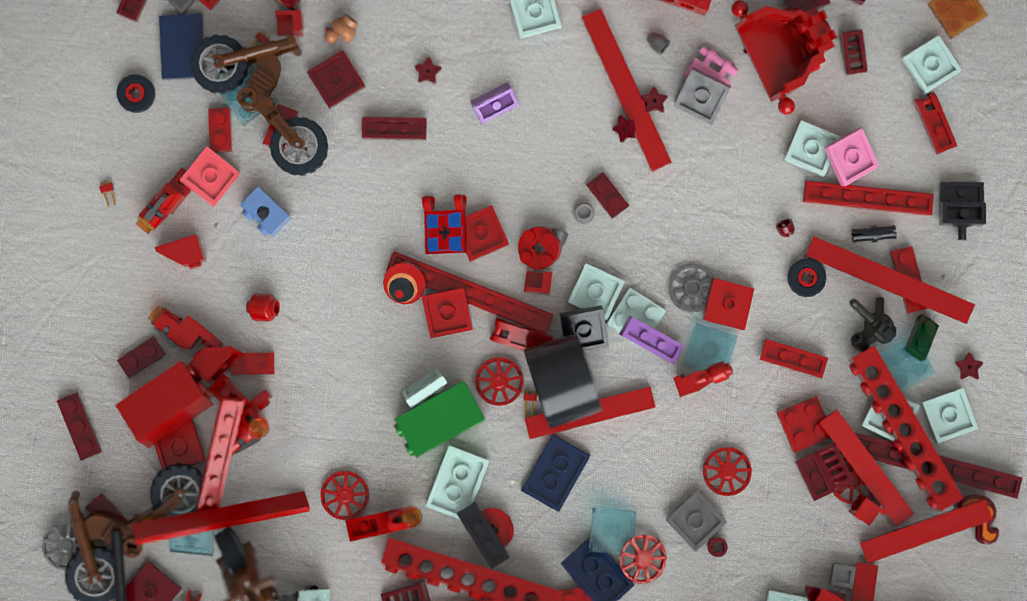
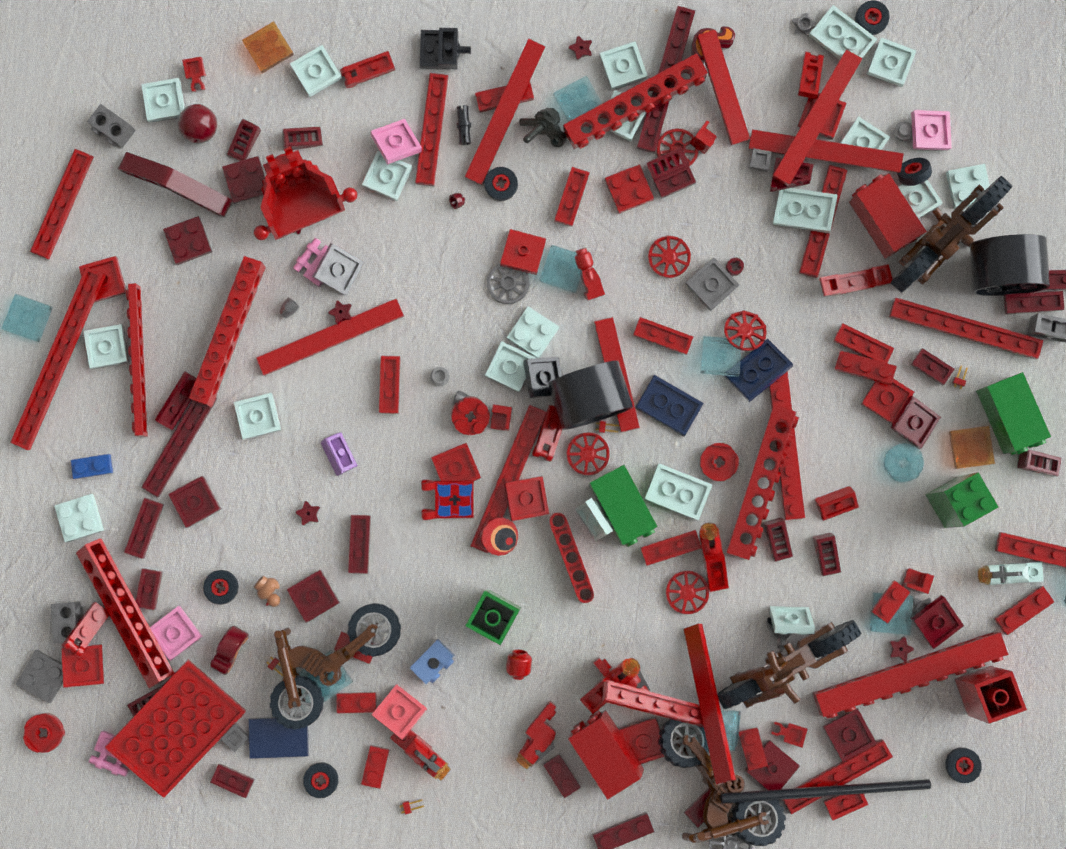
camera: 85 degrees left, 0 degrees up
(150, 152) = (375, 766): none -> red plate
(171, 570) = (753, 749): none -> red plate
(184, 251) = (467, 735): red slope -> none
(214, 361) = (568, 708): red slope -> none
(254, 364) = (569, 680): red plate -> none
(289, 23) = (260, 638): red panel -> none
(313, 275) = (493, 616): none -> green brick
(370, 364) = (571, 567): none -> red beam
(394, 475) = (670, 547): none -> red plate
(483, 535) = (725, 469): black plate -> none
(573, 157) = (389, 385): none -> red plate
(607, 195) = (424, 355): dark red plate -> none
(628, 124) = (365, 334): dark red plate -> none
(635, 464) = (663, 336): none -> red plate
(651, 339) = (554, 318): medium lavender plate -> none
(866, 467) = (667, 136): red tile -> none
(921, 337) = (555, 86): dark green plate -> none

